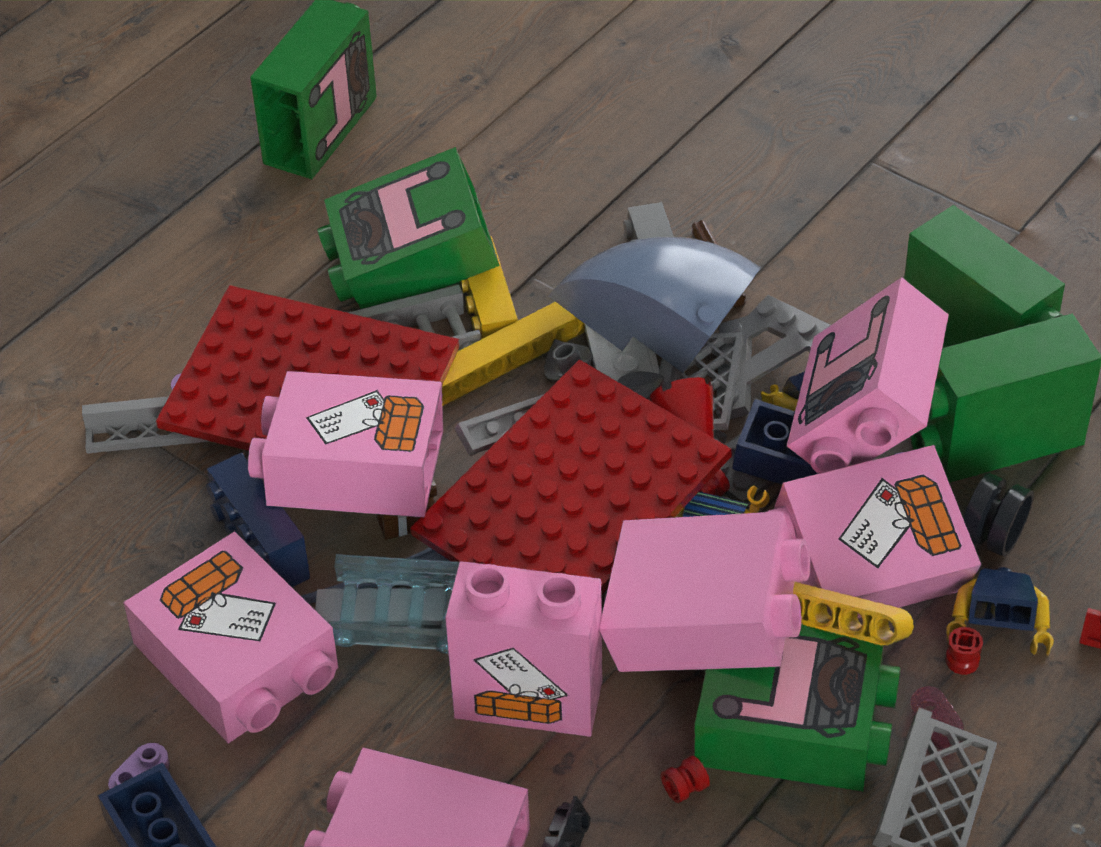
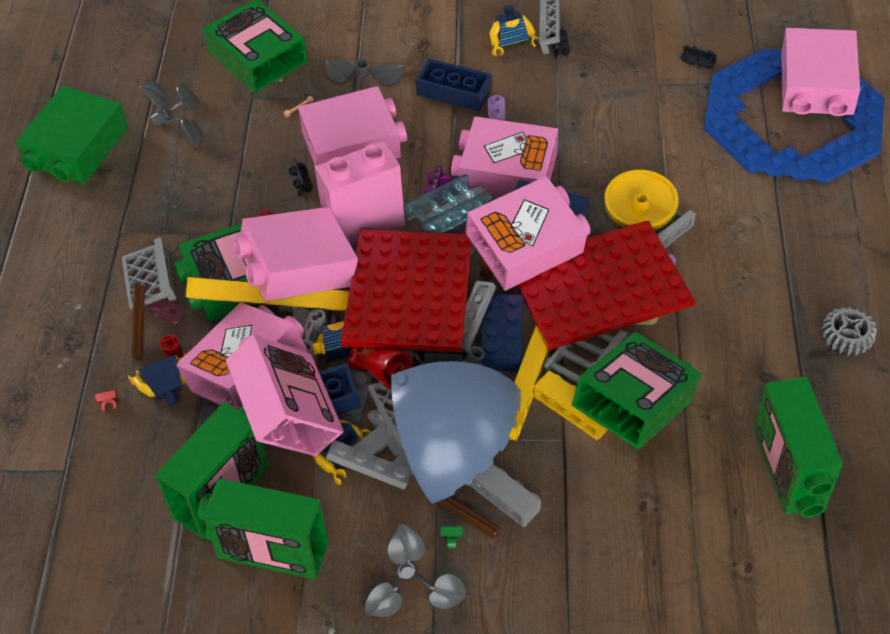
camera: 145 degrees right, 5 degrees up
(88, 196) = (848, 335): none -> light grey gear
(122, 471) = (641, 197): none -> yellow dish
(353, 691) = (437, 179): none -> magenta hips
(496, 386) = (503, 333): none -> dark blue brick
(752, 241) = (451, 534): none -> green tile
(835, 229) = (402, 549): none -> dark grey plant
(994, 709) = (138, 321): none -> reddish brown axle
(998, 514) = (187, 415): black wheel -> none

